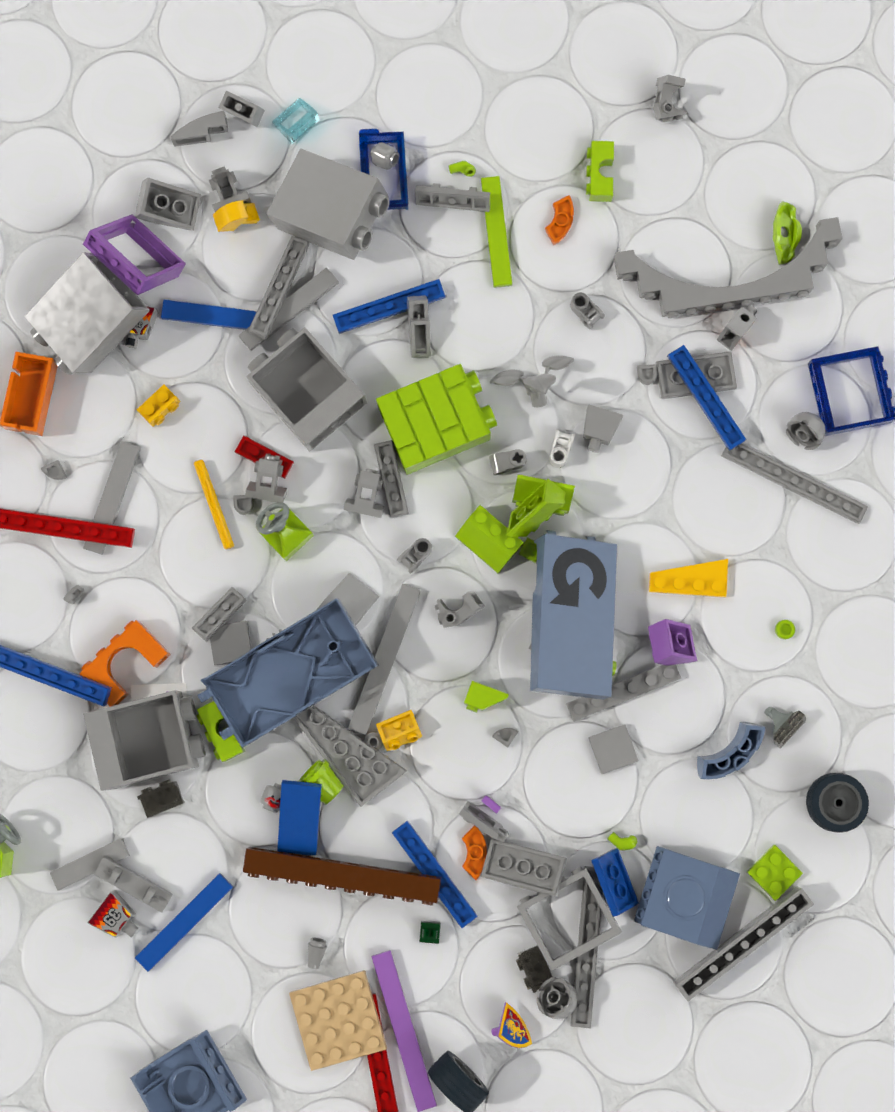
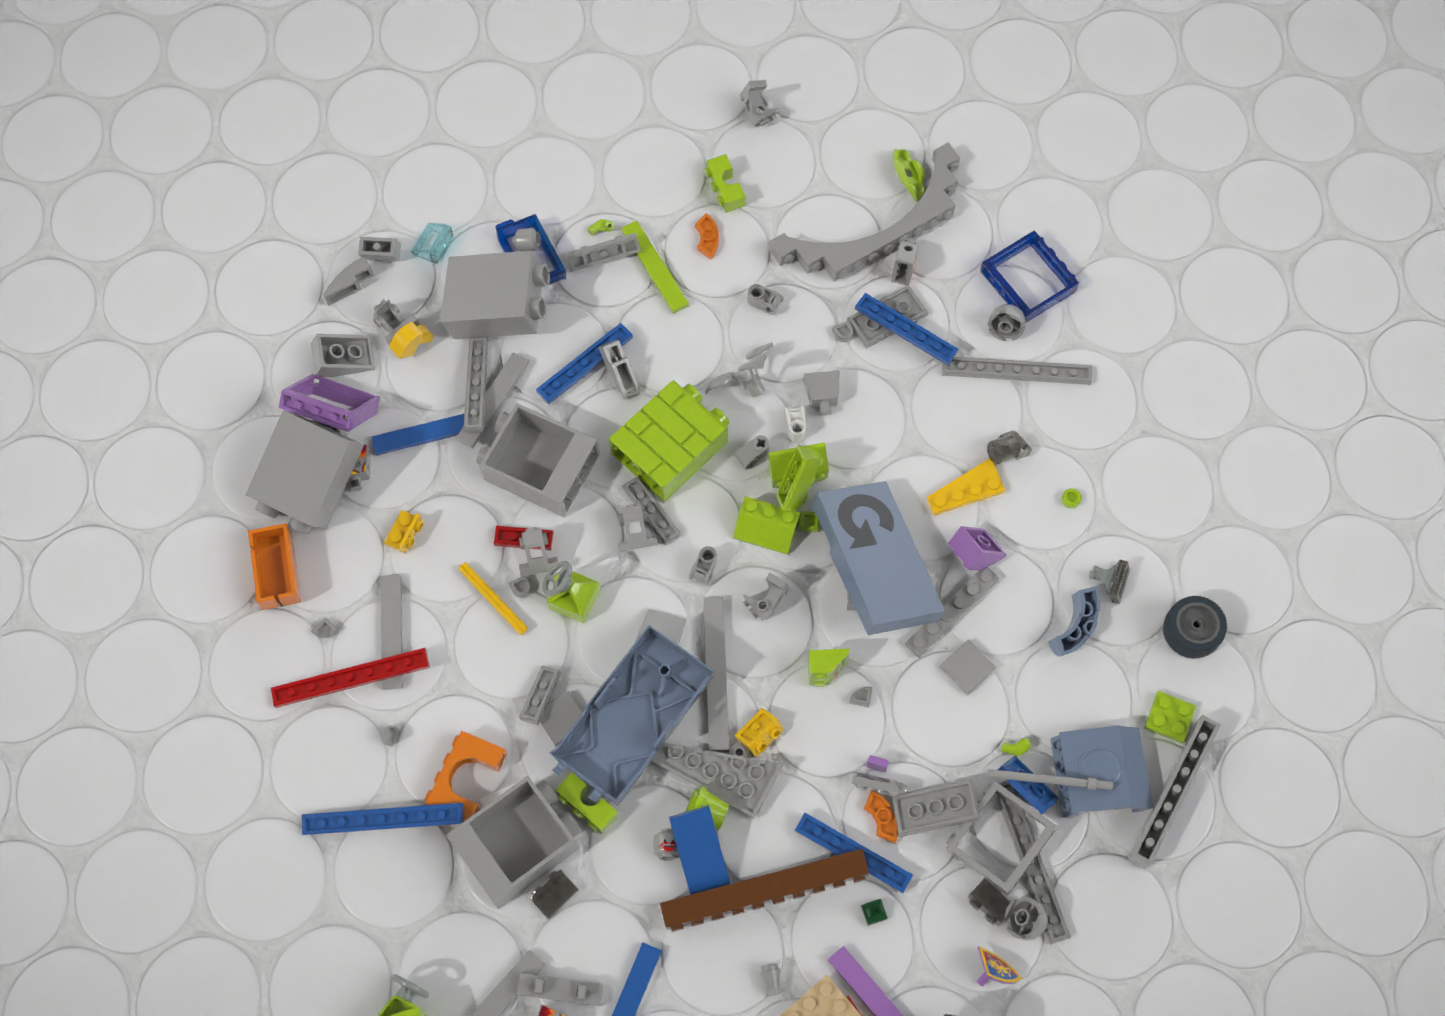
camera: 25 degrees left, 15 degrees down
(668, 909) = (1089, 783): none -> light grey bar
(747, 557) = (1008, 447): none -> clear smoke piece

